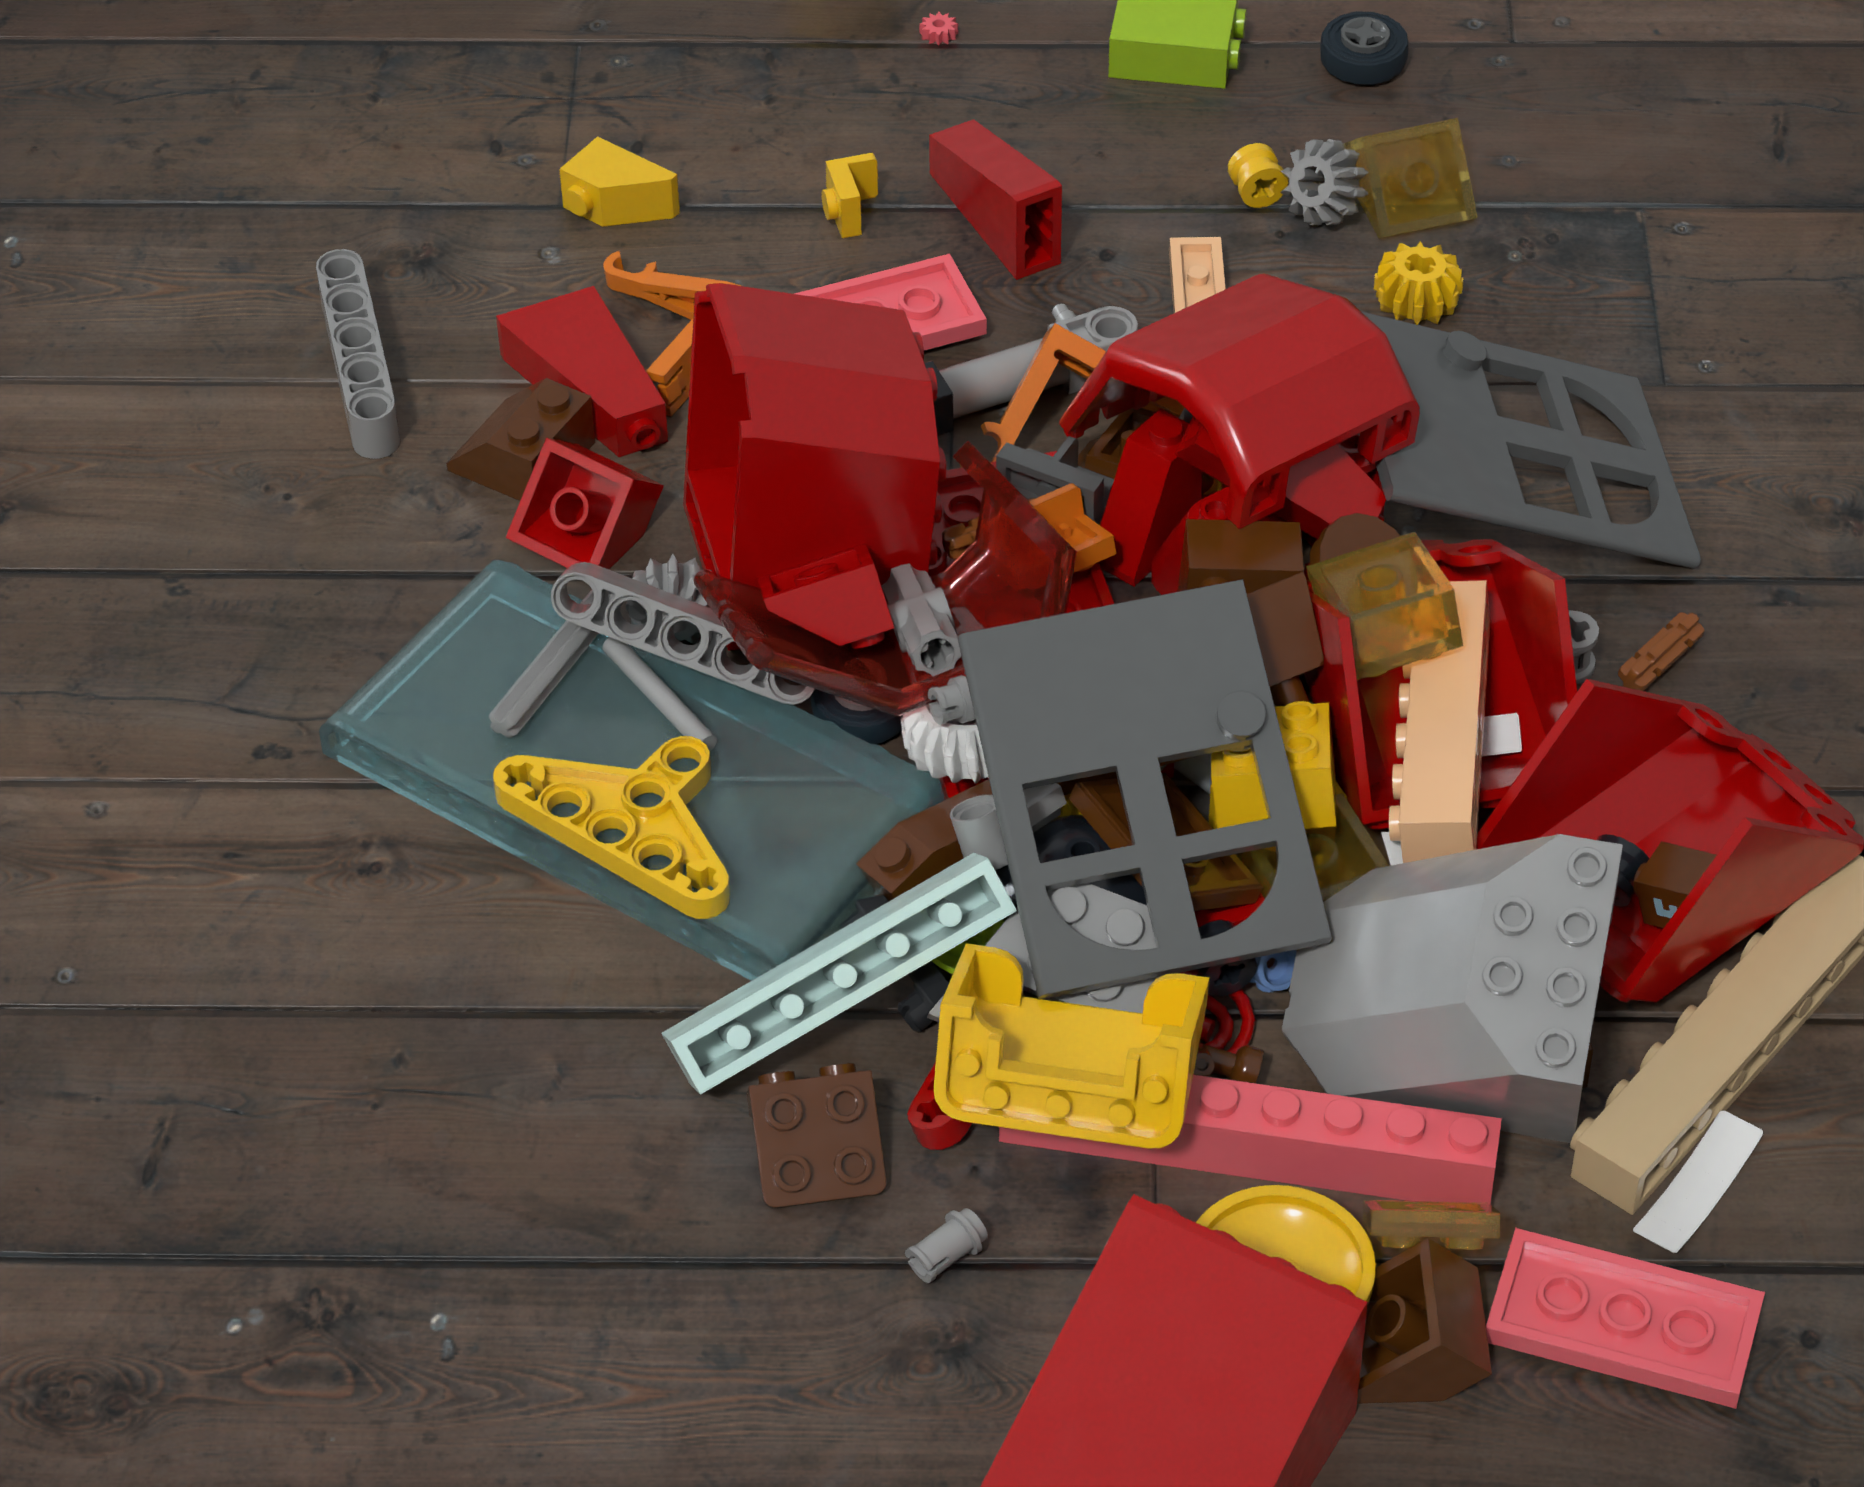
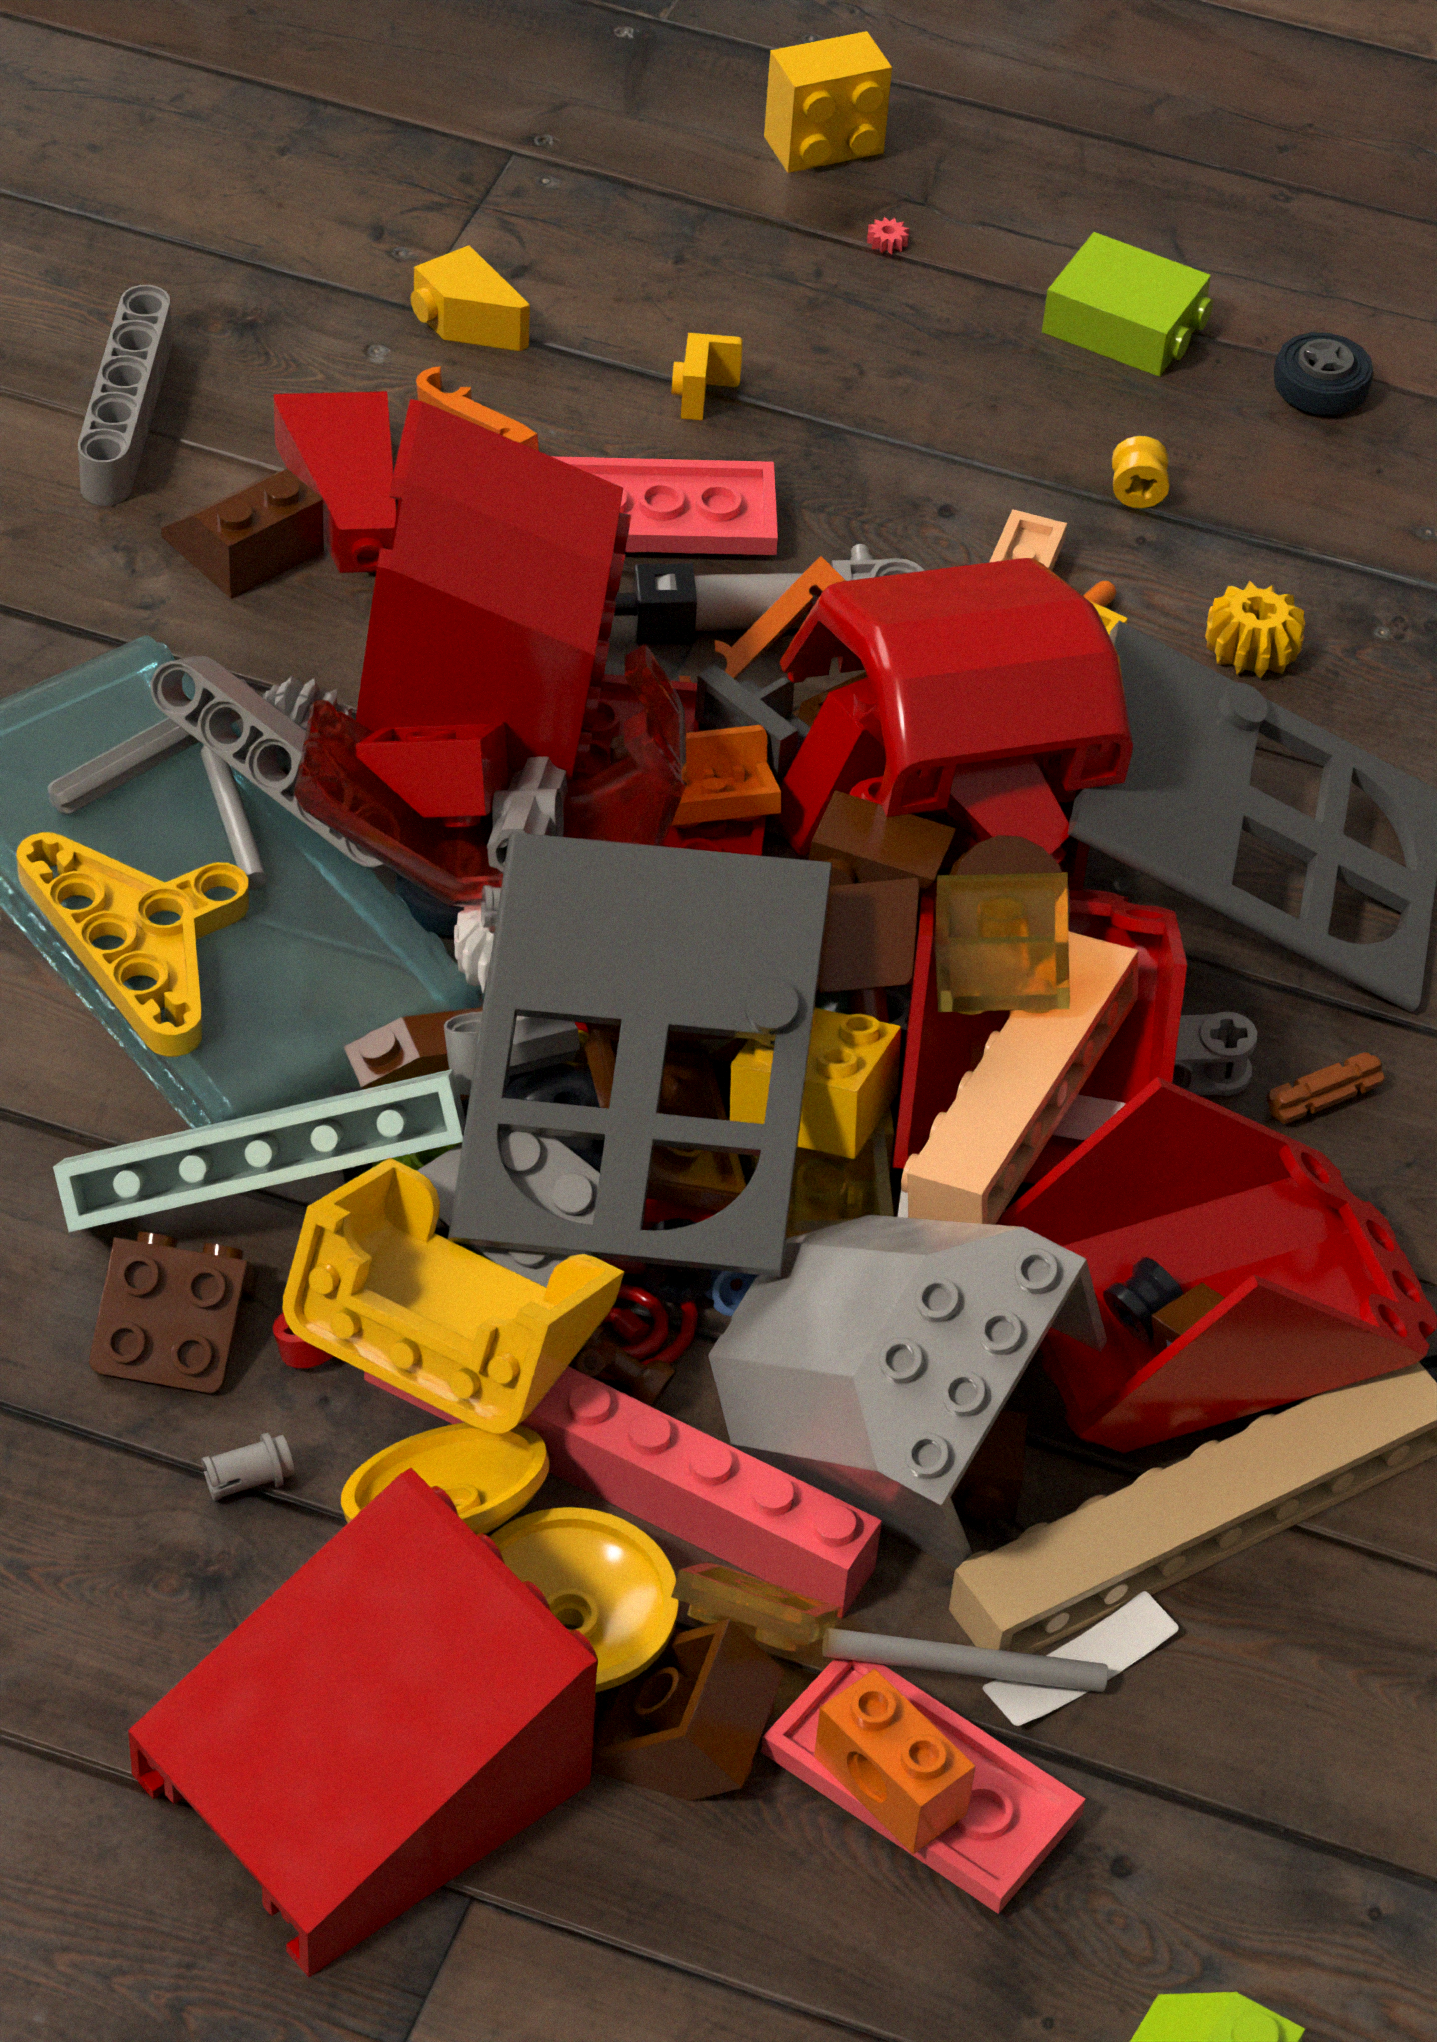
camera: 15 degrees right, 0 degrees up
(582, 506) = (268, 610): red slope -> none
(1001, 195) = (854, 419): red slope -> none
(1092, 1197) = (480, 1471): none -> yellow dish
(1319, 164) = (1201, 496): light grey gear -> none
(1415, 178) = (1304, 519): clear yellow slope -> none
(1610, 1310) = (894, 1761): none -> orange brick
(1614, 1212) = (964, 1660): none -> light grey bar

